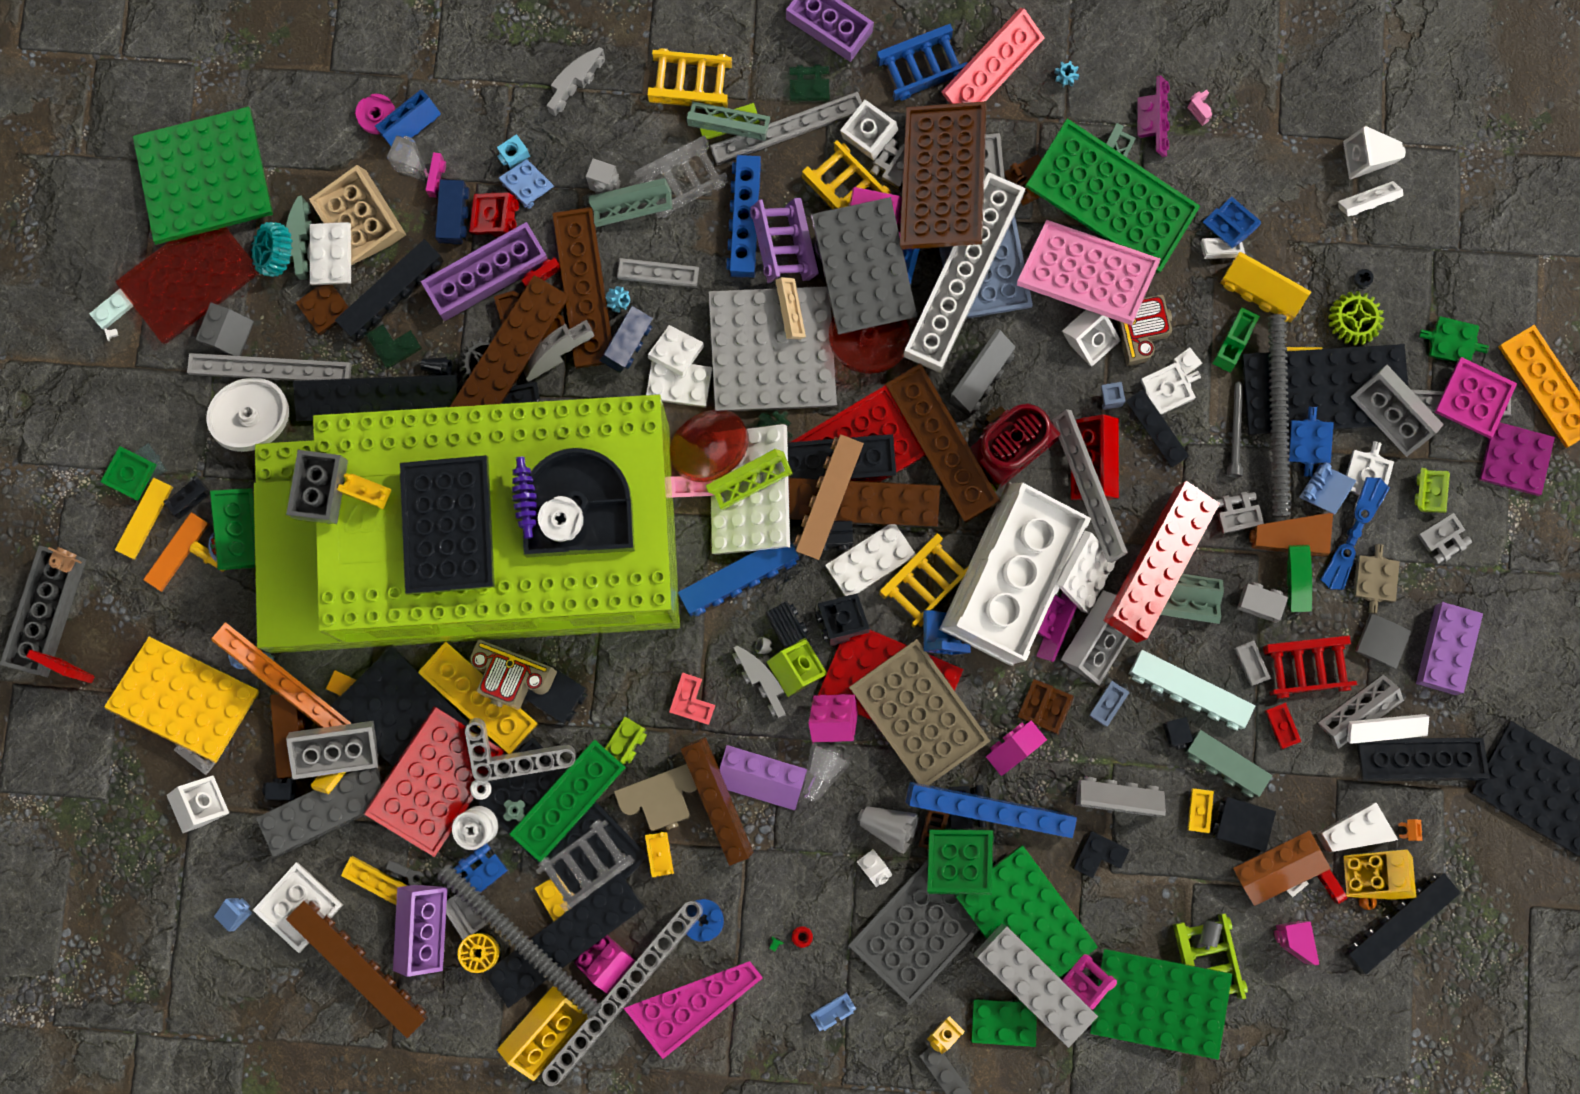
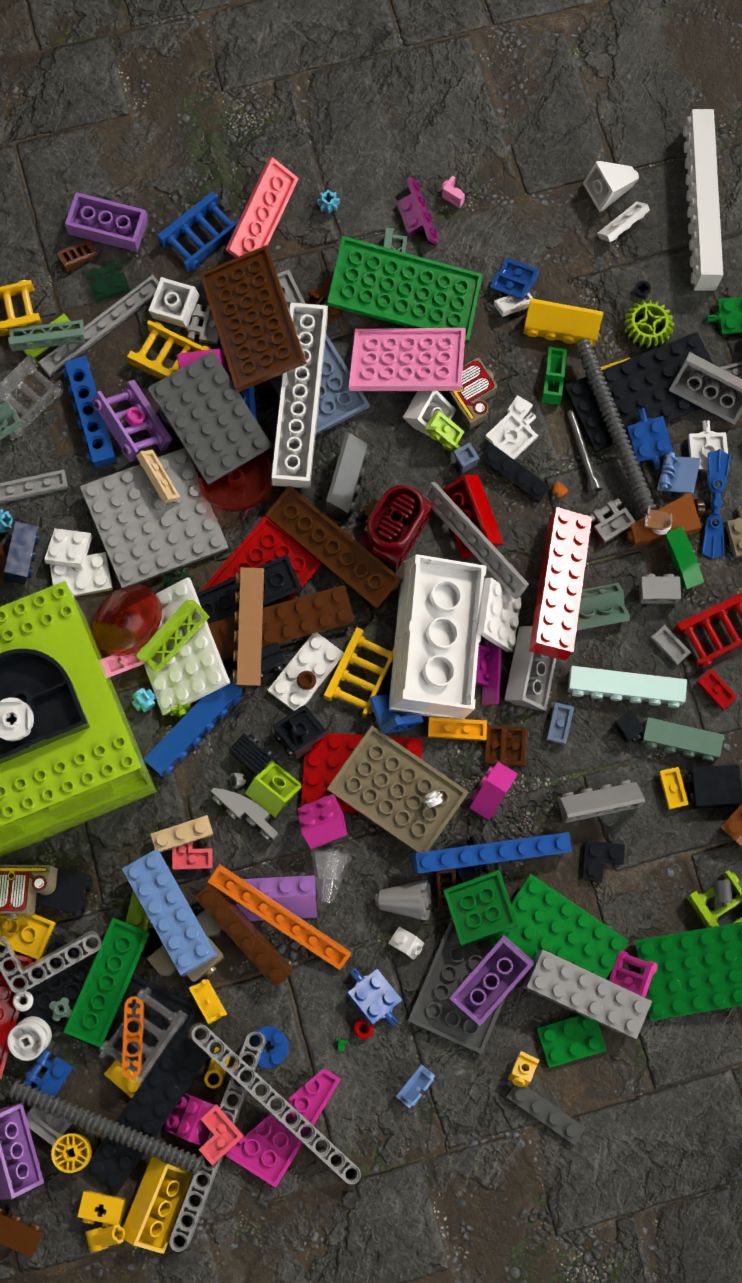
camera: 25 degrees left, 5 degrees down
(478, 1045) = (103, 1237): none -> yellow piece
(501, 1017) = (92, 1200): none -> yellow brick
(578, 866) = (133, 1037): none -> orange beam
(630, 991) = (224, 1137): none -> coral plate
(647, 920) = (215, 1068): none -> yellow piece
(651, 755) = (169, 912): none -> medium blue brick
(690, 680) = (182, 834): none -> tan plate
(694, 988) = (280, 1112): none -> light grey beam
(698, 532) = (143, 700): none -> medium azure gear
(732, 556) = (181, 711): none -> lime plant
(757, 797) = (279, 916): none -> orange plate
(781, 52) = (68, 252): none -> reddish brown slope
(788, 238) = (134, 416): none -> dark pink tile
(823, 910) = (373, 997): none -> plate
(867, 569) = (306, 680): none -> reddish brown plate
(945, 937) = (491, 980): none -> medium lavender brick
(951, 736) = (433, 799): none -> white plate
(1002, 672) = (457, 729): none -> light orange plate
(1099, 360) = (444, 430): none -> lime bracket
(1197, 461) = (560, 489): none -> orange hinge
(1286, 532) = (658, 521): none -> medium nougat piece
(1337, 529) = (700, 507): none -> dark brown tile
(1464, 204) = (703, 200): none -> white brick

